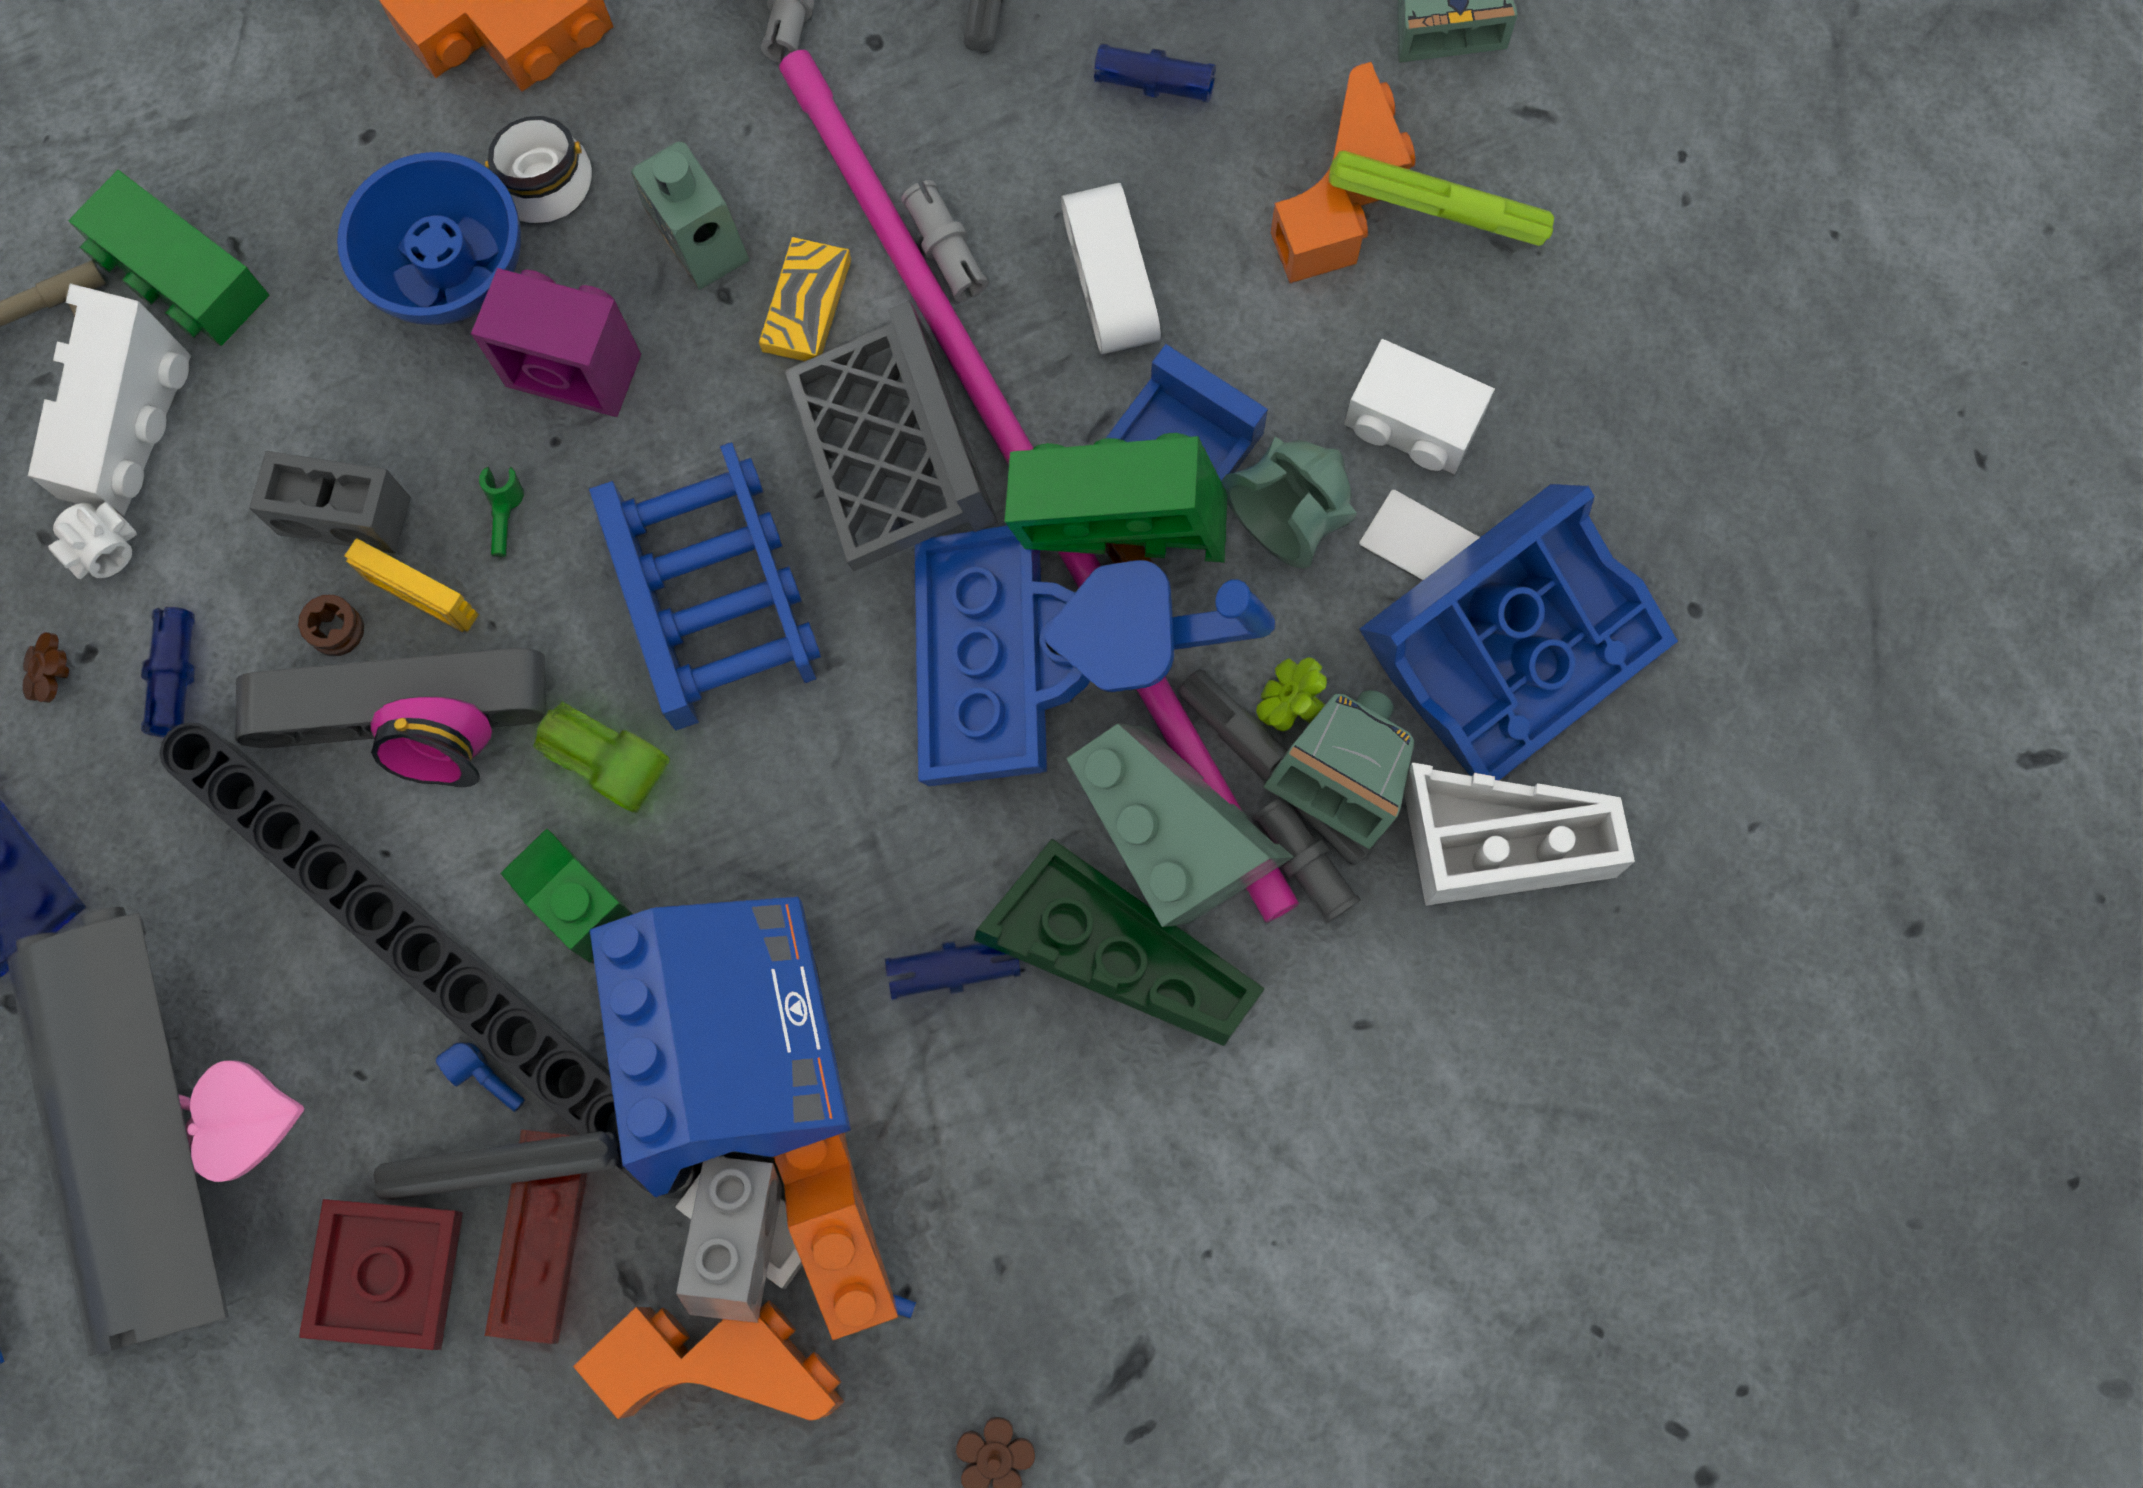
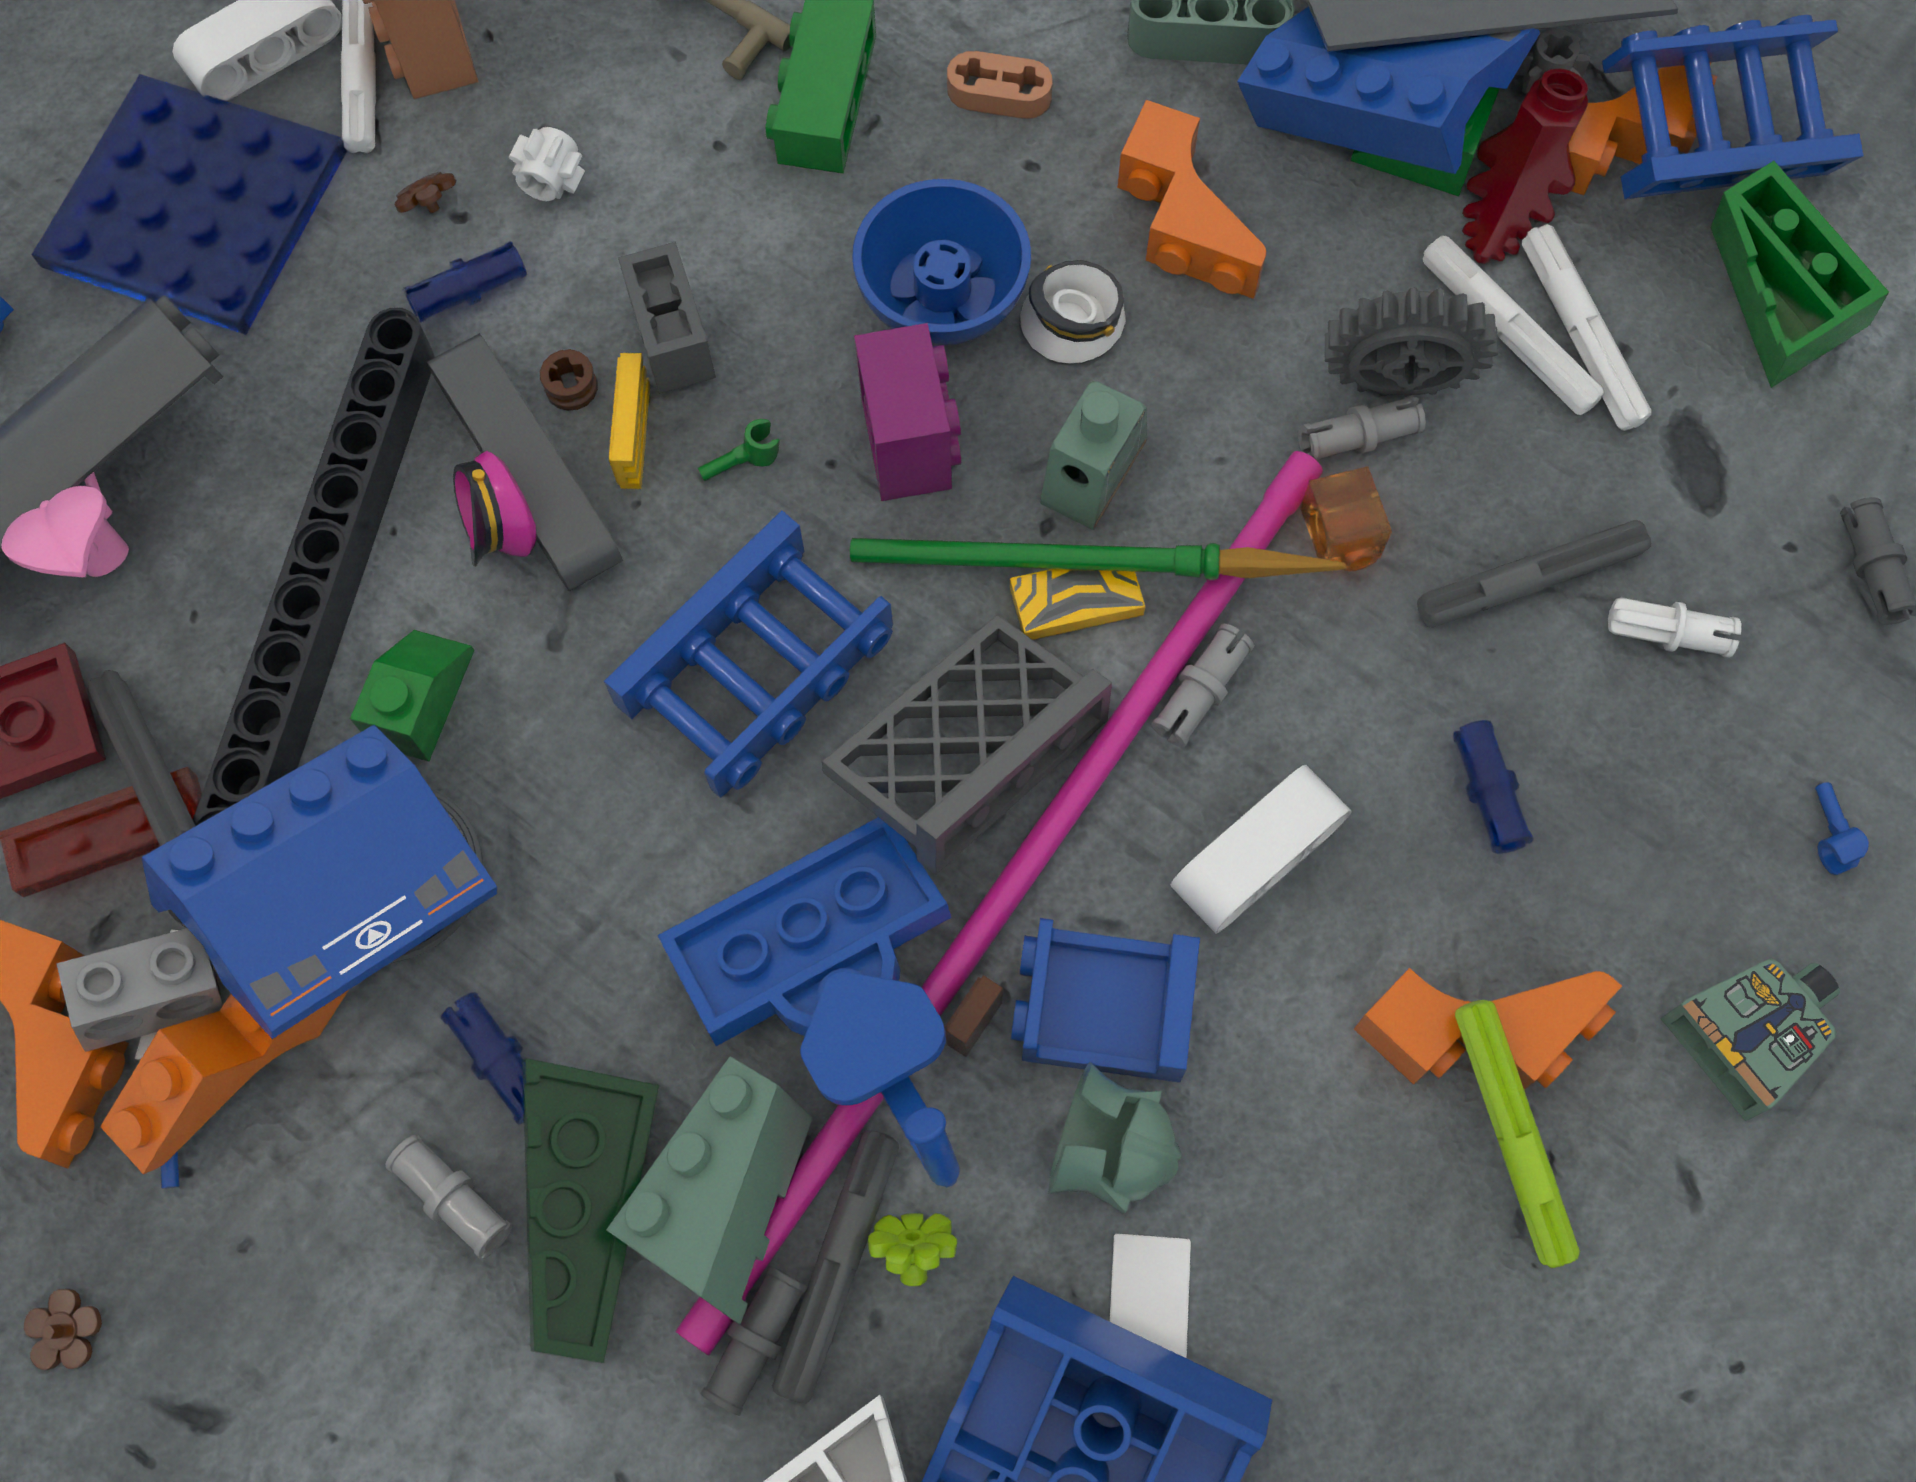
camera: 60 degrees right, 5 degrees down
(108, 402) = (667, 109): white wedge -> none
(270, 118) = (999, 84): none -> nougat beam
(466, 1060) = (224, 687): blue hand -> none
(614, 763) = (551, 670): clear neon green piece -> none
(830, 194) = (1182, 560): none -> green piece
(866, 56) = (1346, 518): none -> clear orange brick
(1053, 1061) = (448, 1196): none -> light grey pin
(1118, 494) = (1000, 971): green wedge -> none
(1348, 767) = (860, 1334): sand green torso -> none
(1417, 407) = (1280, 1221): white brick -> none

